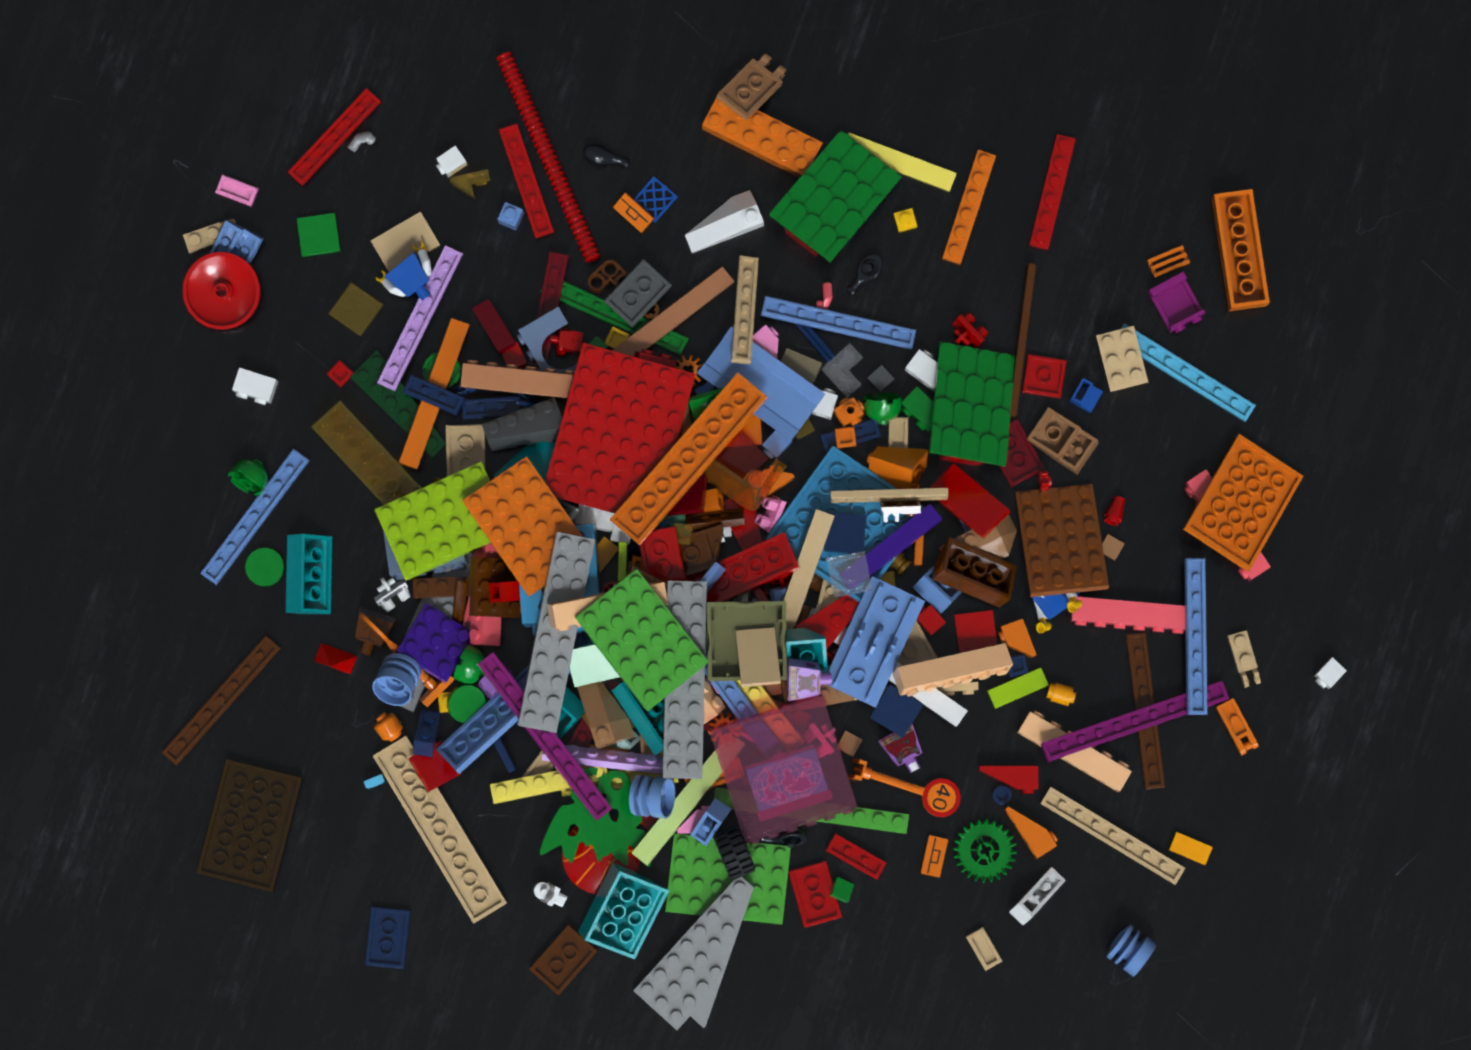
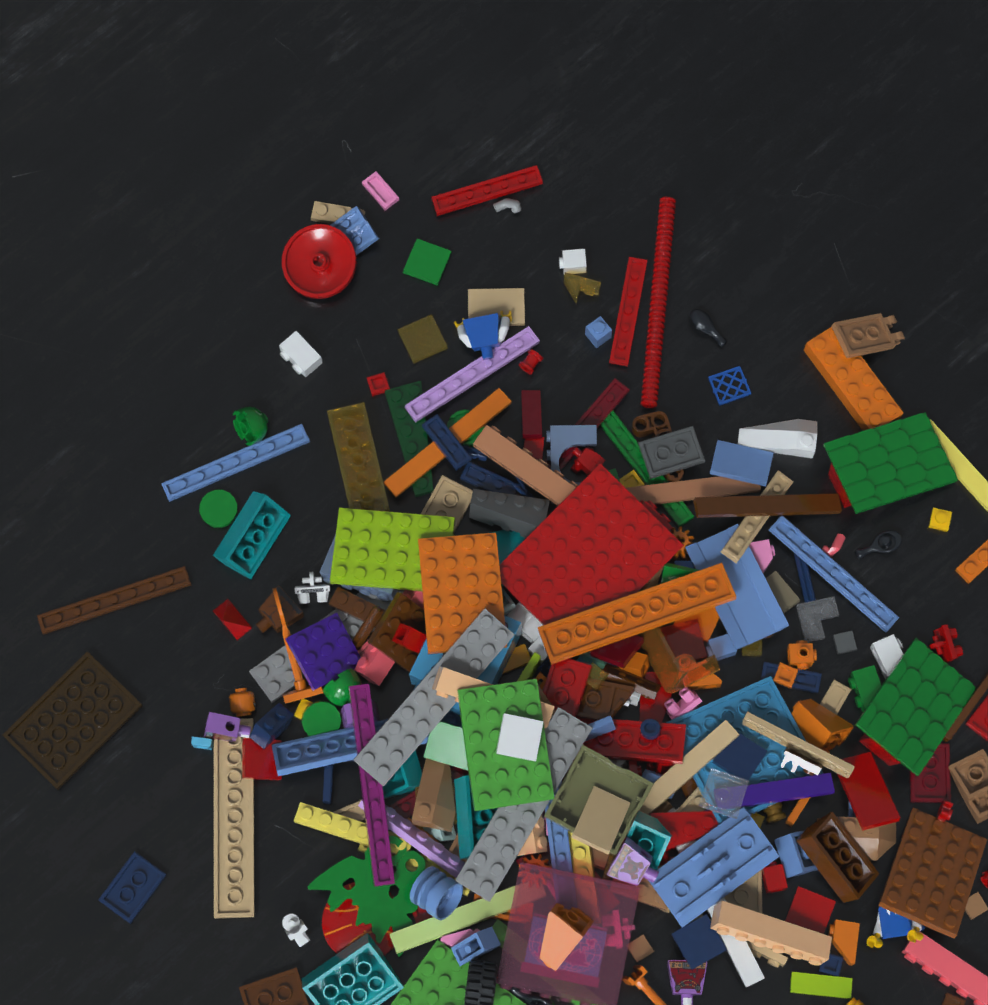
camera: 30 degrees right, 10 degrees down
(380, 761) = (217, 724): none -> medium lavender torso
(396, 679) = (272, 662): medium blue wheel -> none
(465, 277) = (530, 361): none -> red bush
(633, 212) = (705, 386): orange tile -> none
(650, 628) = (519, 737): none -> white tile
(704, 267) = (741, 463): none -> medium blue tile
(748, 295) = (767, 505): none -> reddish brown tile
(756, 553) = (650, 729): none -> dark blue tile
(780, 771) = (562, 934): none -> orange slope
(826, 405) = (781, 639): white brick -> none
(882, 407) = (833, 667): green cylinder -> none

